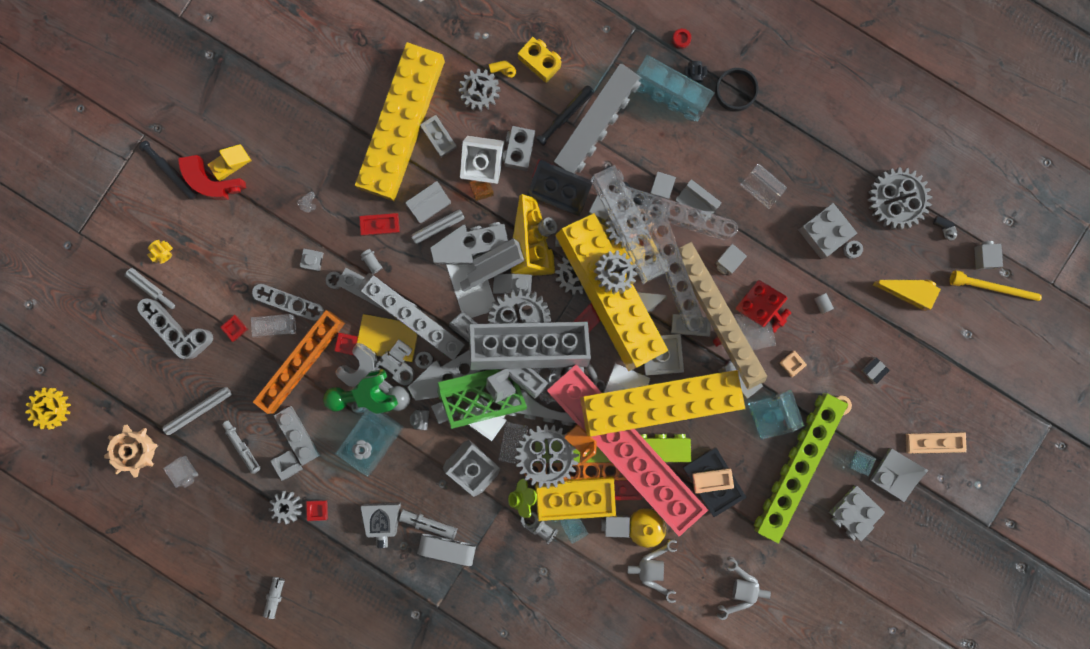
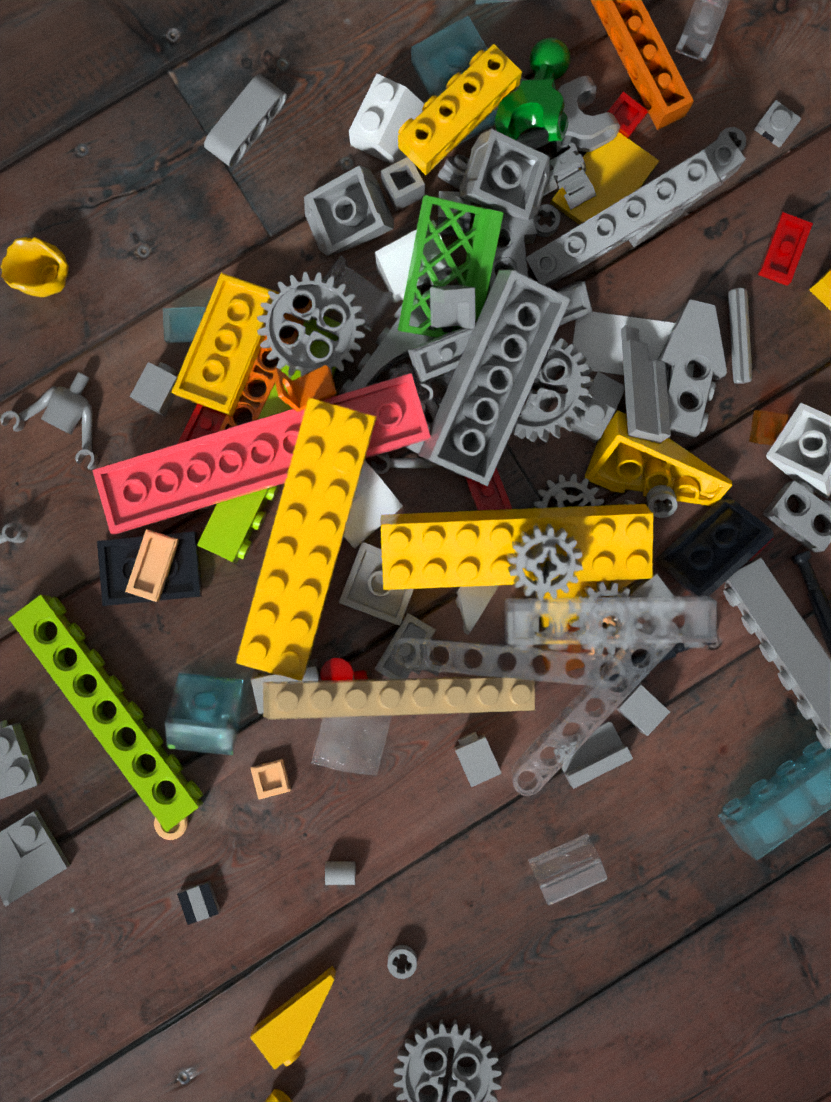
camera: 110 degrees right, 0 degrees up
(288, 303) = (732, 63): light grey beam -> none
(356, 449) = (453, 63): light grey plate -> none
(371, 261) = (734, 210): light grey pin -> none
(381, 521) = (334, 43): light grey torso -> none
(392, 433) = (459, 108): none -> yellow brick
(406, 518) = (304, 103): light grey pin -> none
(411, 468) = (381, 117): none -> white slope
(415, 391) = (505, 175): none -> light grey slope
(428, 202) = (785, 338): light grey panel -> none
(442, 446) = (402, 183): none -> light grey brick
(523, 498) = (264, 266): lime plate -> none
(540, 528) = (210, 270): light grey connector -> none
(583, 624) = (34, 267): none -> yellow hair
(647, 528) = (130, 431): yellow cylinder -> none
(696, 71) = (800, 850): black gear -> none
(720, 355) = (337, 670): none -> red tile
(742, 71) = (772, 914): black tyre -> none
(762, 304) = (383, 774): red plate -> none
(827, 231) = (450, 934): light grey brick -> none
(862, 463) = (67, 810): clear light blue plate -> none
(935, 442) = (42, 941): light nougat tile -> none

